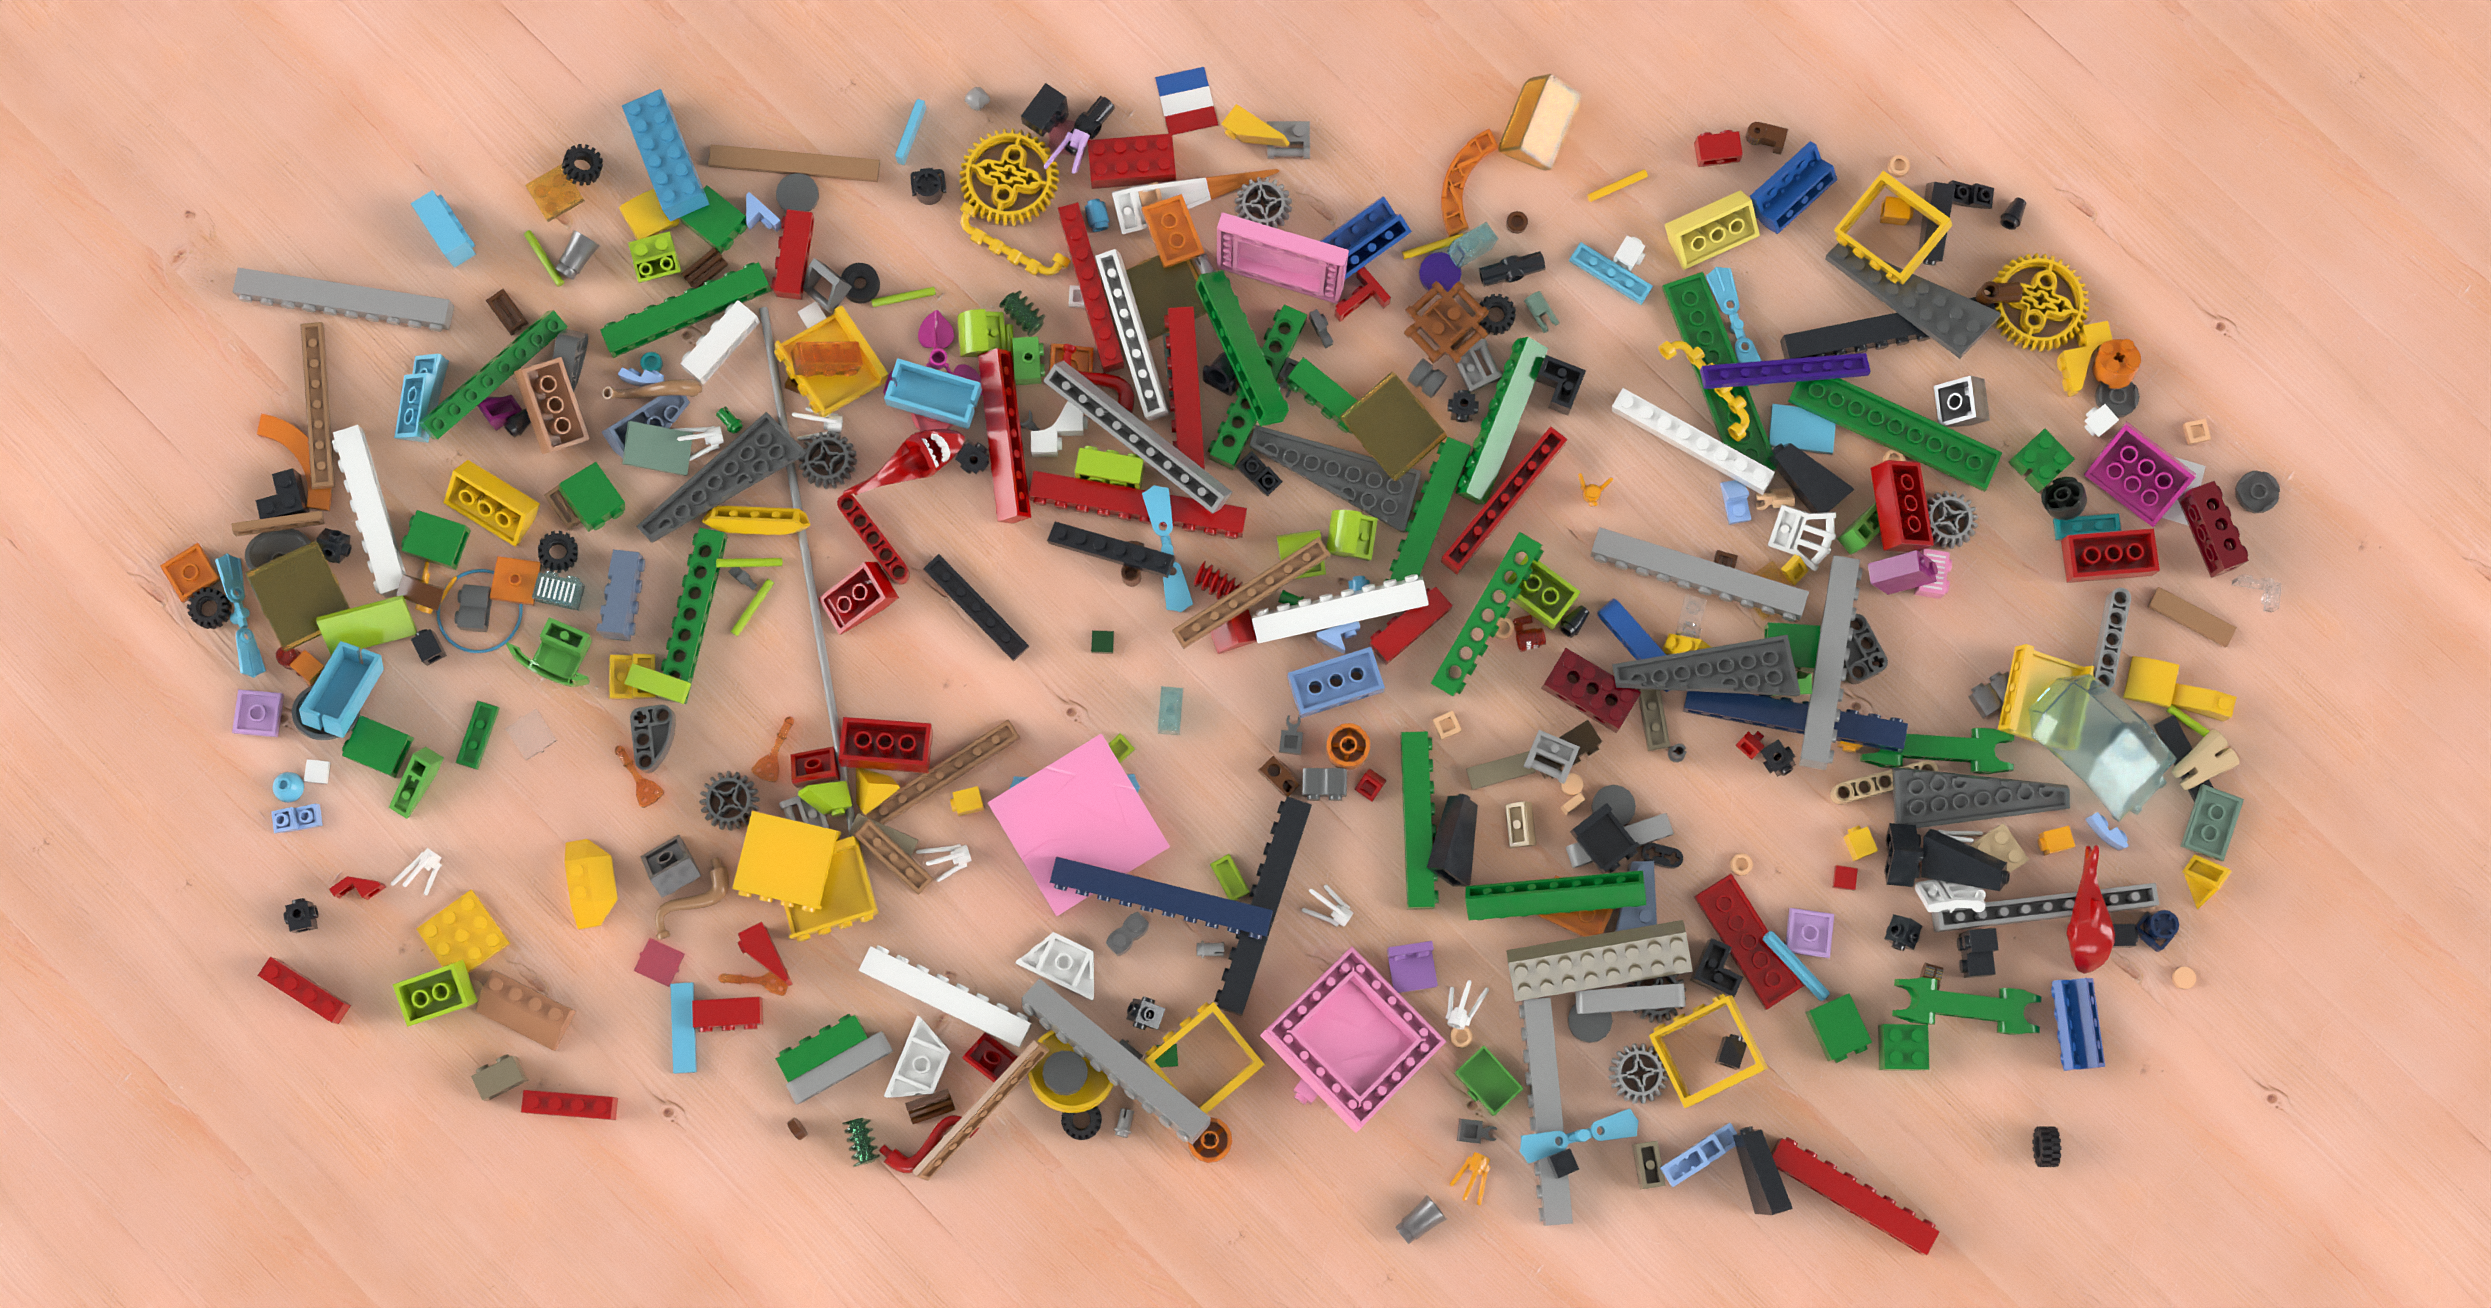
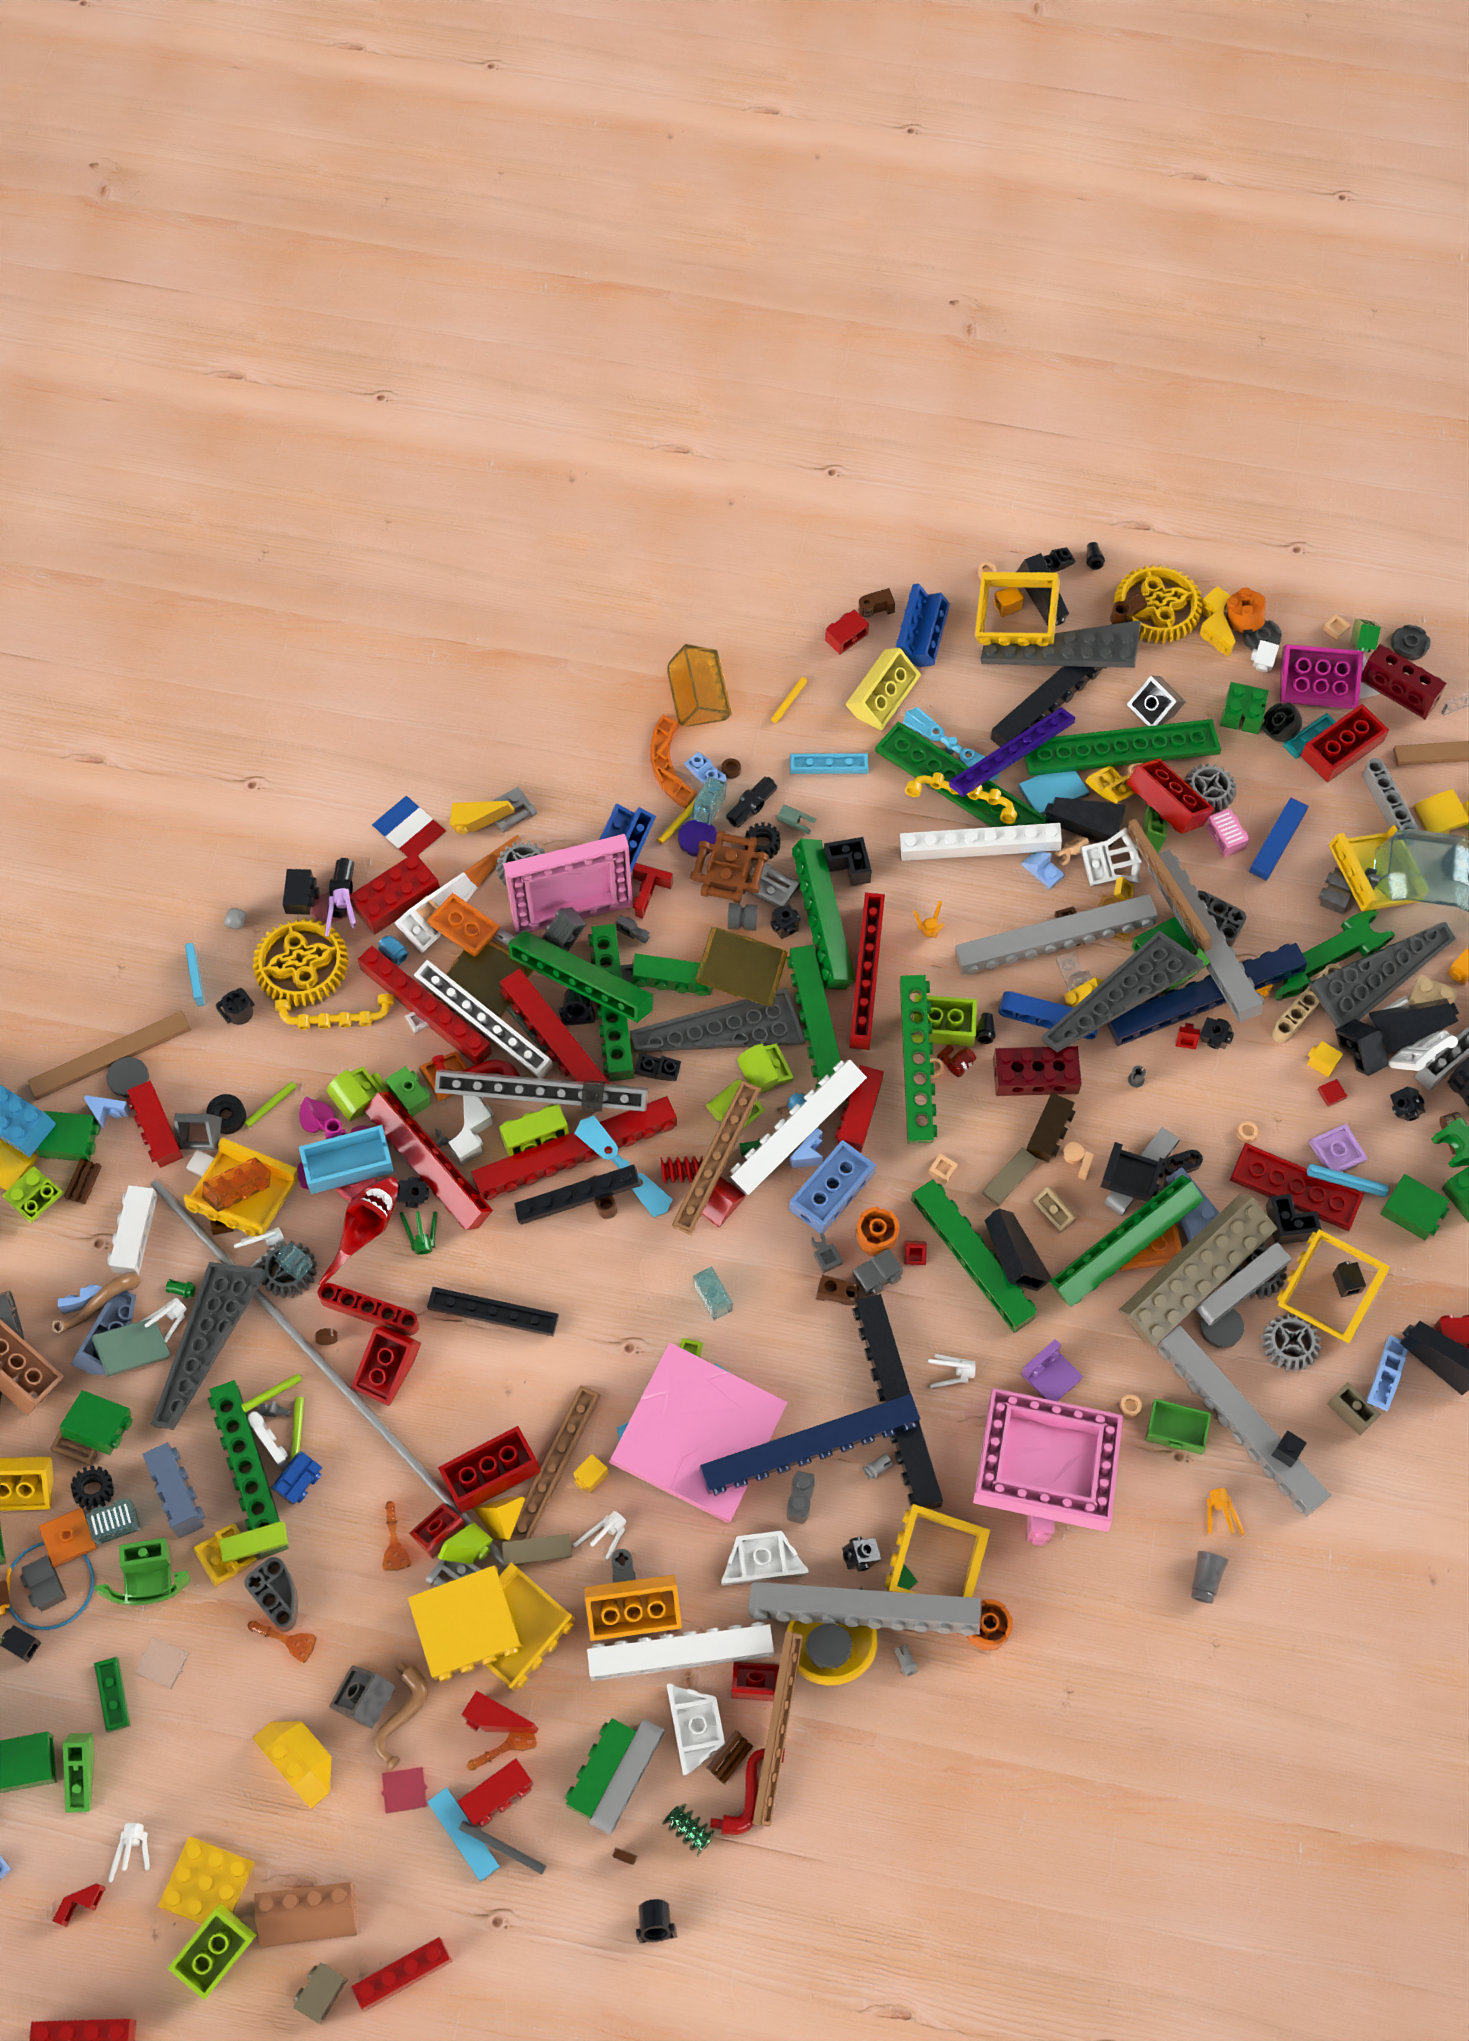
camera: 30 degrees left, 15 degrees down
(301, 916) = (47, 1967): black brick -> none
(651, 361) = (80, 1280): teal tile -> none
(684, 310) = (85, 1222): green brick -> none
(707, 1060) = (502, 1847): none -> dark grey bar
(723, 599) = (267, 1438): none -> white hinge
(723, 808) = (370, 1604): dark grey gear -> none
(726, 650) = (296, 1478): none -> blue brick
(756, 520) = (256, 1354): yellow brick -> none
(787, 1195) = (655, 1922): none -> black piece
(824, 541) = (326, 1336): none -> reddish brown tile
(833, 459) = (294, 1261): none -> clear light blue brick
(893, 856) = (556, 1560): medium nougat tile -> none
(928, 936) = (632, 1607): none -> light orange brick
(939, 906) = (624, 1572): none -> dark grey piece
(954, 508) = (422, 1243): none -> green plant
(1022, 313) = (380, 1057): clear green piece -> none
(1085, 1133) = (875, 1694): black tyre -> none
(1102, 642) = (618, 1275): dark green tile -> none
(1177, 470) = (593, 1095): none -> clear smoke bracket
(1230, 878) = (851, 1397): lime tile -> none
(1258, 292) = (564, 928): none -> dark grey brick
(1458, 1017) = (1118, 1389): white plant -> none
(1472, 1131) = (1195, 1475): dark grey plate -> none
(1490, 209) = (702, 768): none -> light blue slope
(1542, 1145) = (1303, 1398): medium azure piece -> none
(1555, 750) = (1044, 1129): light grey plate -> none
(1618, 799) = (1107, 1142): dark grey tile -> none
(1630, 253) = (834, 739): white brick -> none
(1653, 719) = (1100, 1064): dark tan tile -> none
(1830, 596) = (1169, 885): none -> medium nougat tile
(1855, 459) = (1110, 784): none -> yellow slope
(1902, 572) = (1207, 839): magenta brick -> none
(1976, 609) = (1278, 839): none -> blue beam
(2028, 705) = (1372, 878): none -> dark grey piece
(2210, 461) = (1365, 635): none -> green brick

